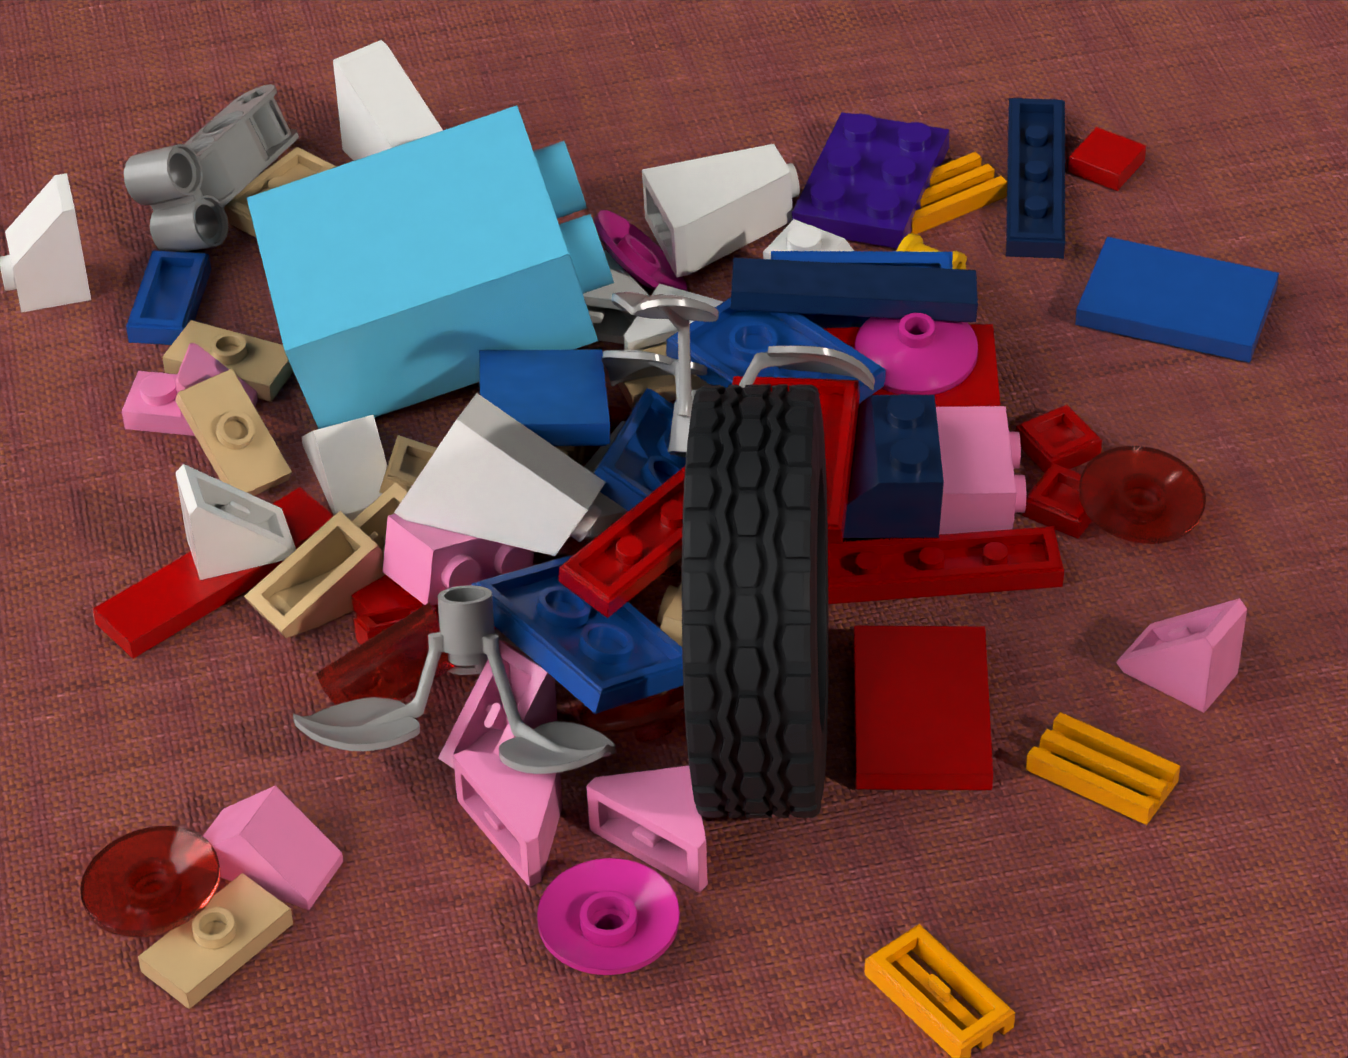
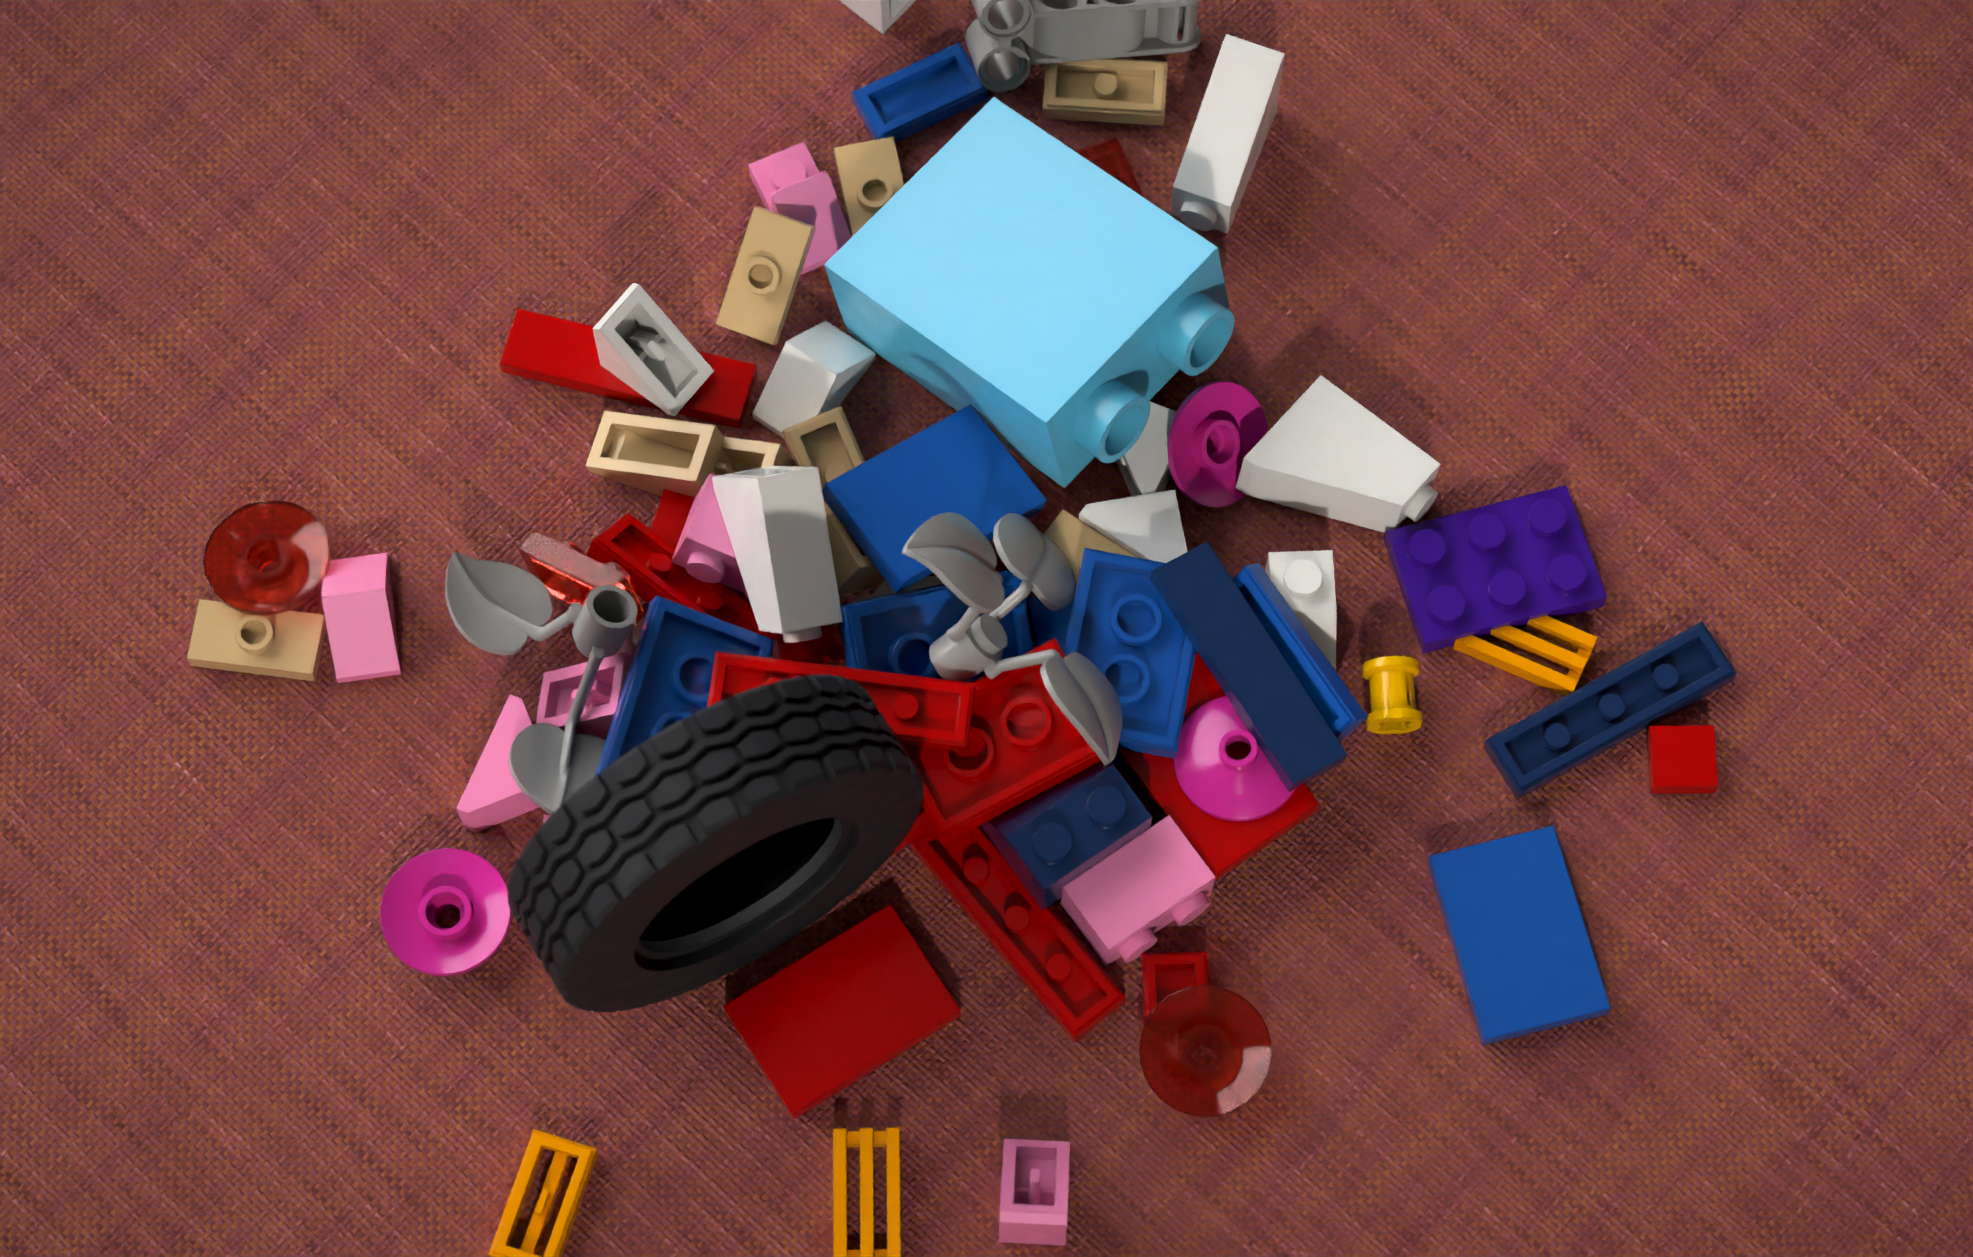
camera: 55 degrees right, 25 degrees up
(1059, 439) = (1249, 937): red tile -> none

